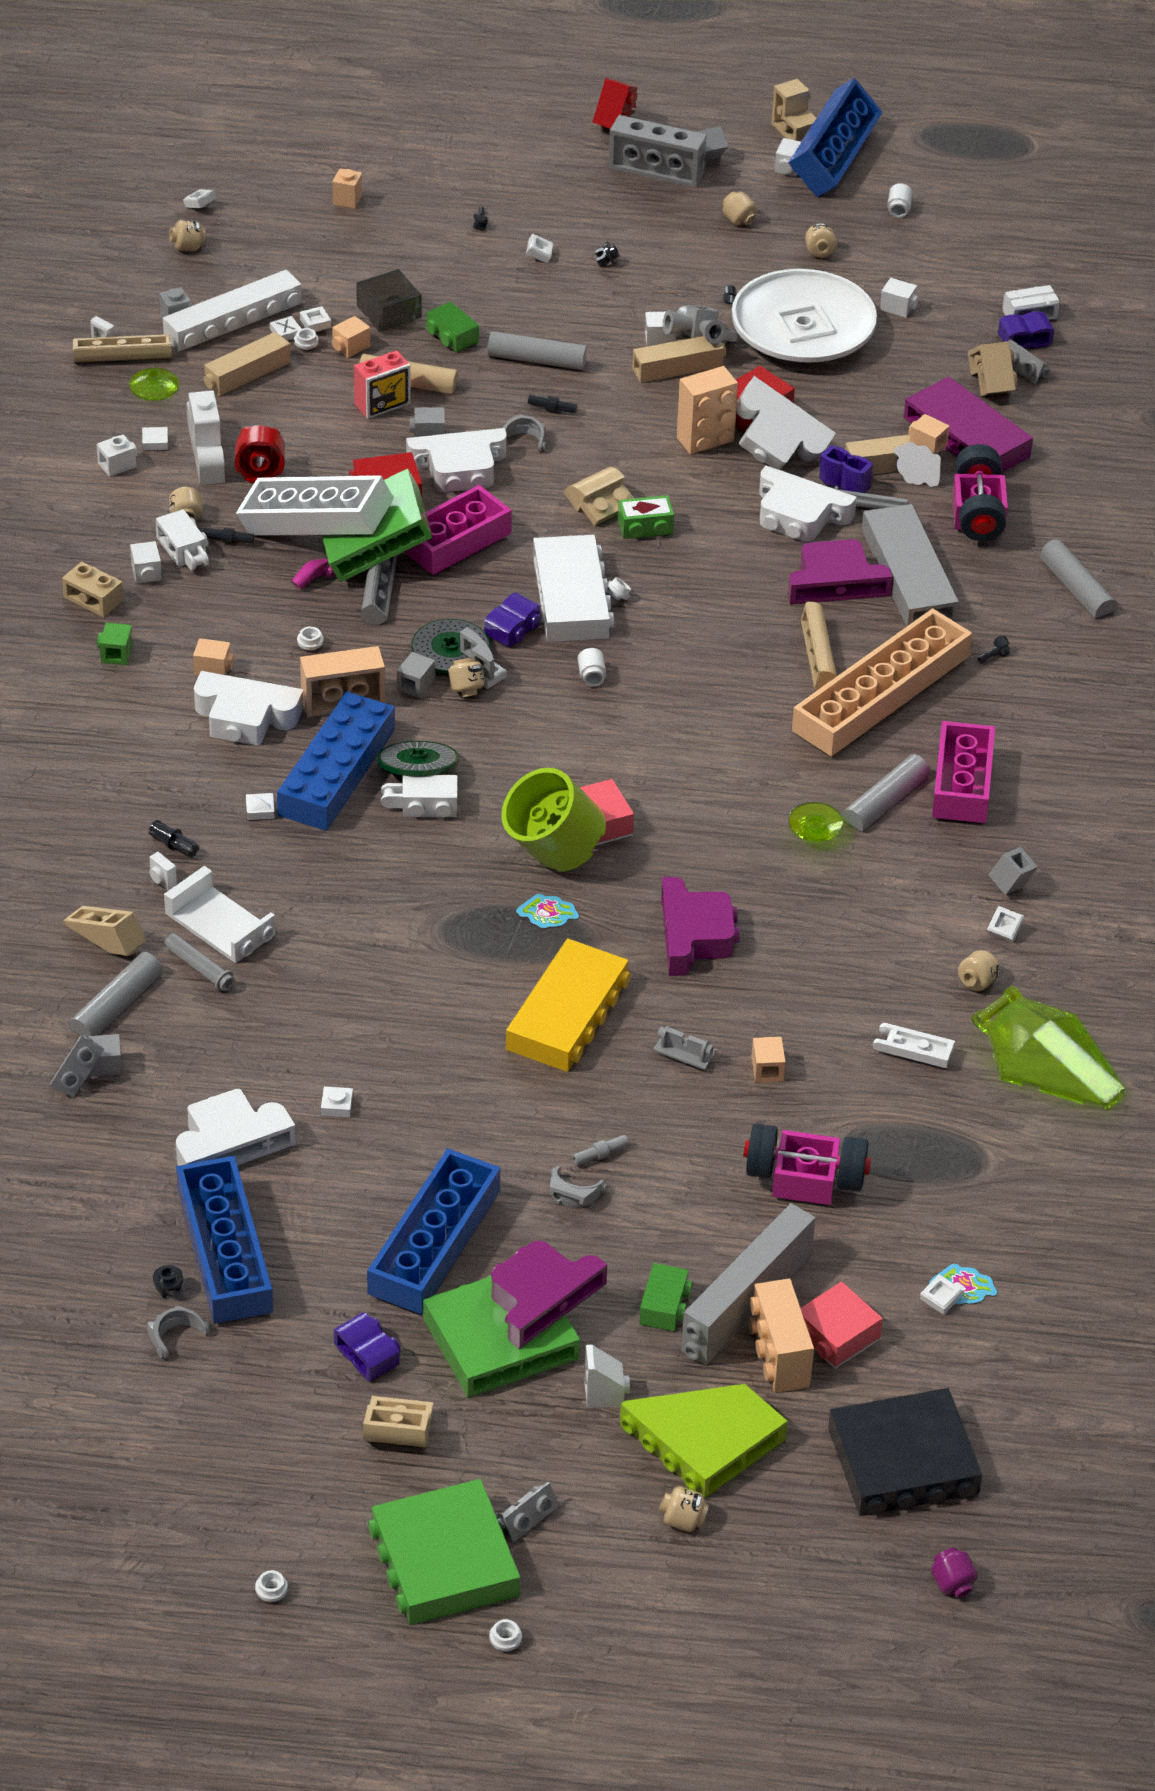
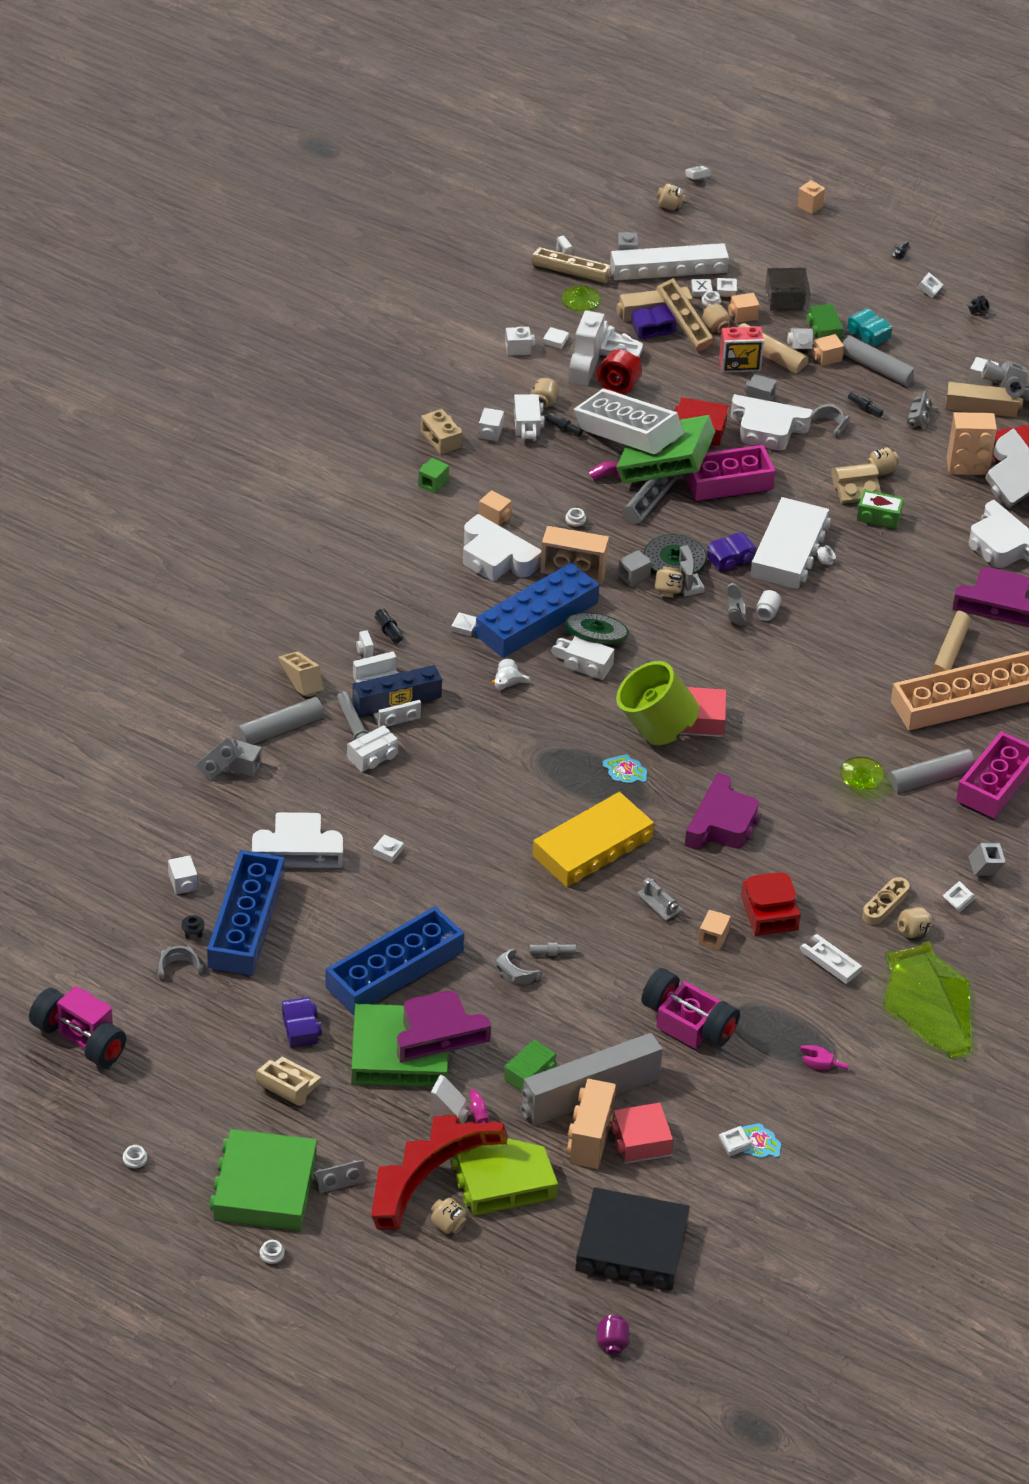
camera: 25 degrees right, 0 degrees up
(113, 1446) = (80, 1020): none -> brick
(116, 1222) = (182, 875): none -> white brick
(233, 422) = (615, 341): none -> white wing
(236, 910) = (396, 689): none -> dark blue brick
(248, 990) = (372, 749): none -> white brick
(258, 384) = (653, 322): none -> dark purple brick
(294, 364) = (685, 315): none -> tan brick
(327, 358) = (716, 318): none -> tan head
(349, 847) = (508, 675): none -> white animal
(439, 351) = (800, 338): none -> white brick
(474, 356) = (828, 350): none -> light nougat brick
(504, 316) = (869, 327): none -> teal brick
(556, 679) = (736, 603): none -> light grey helmet
(616, 393) = (920, 411): none -> light grey hinge
(617, 457) = (885, 460): none -> tan head
(617, 1451) = (421, 1157): none -> red arch
(640, 1372) = (478, 1108): none -> dark pink hand
(811, 1006) = (770, 903): none -> red brick
(932, 967) = (869, 915): none -> tan beam
(977, 1163) = (821, 1058): none -> dark pink hand

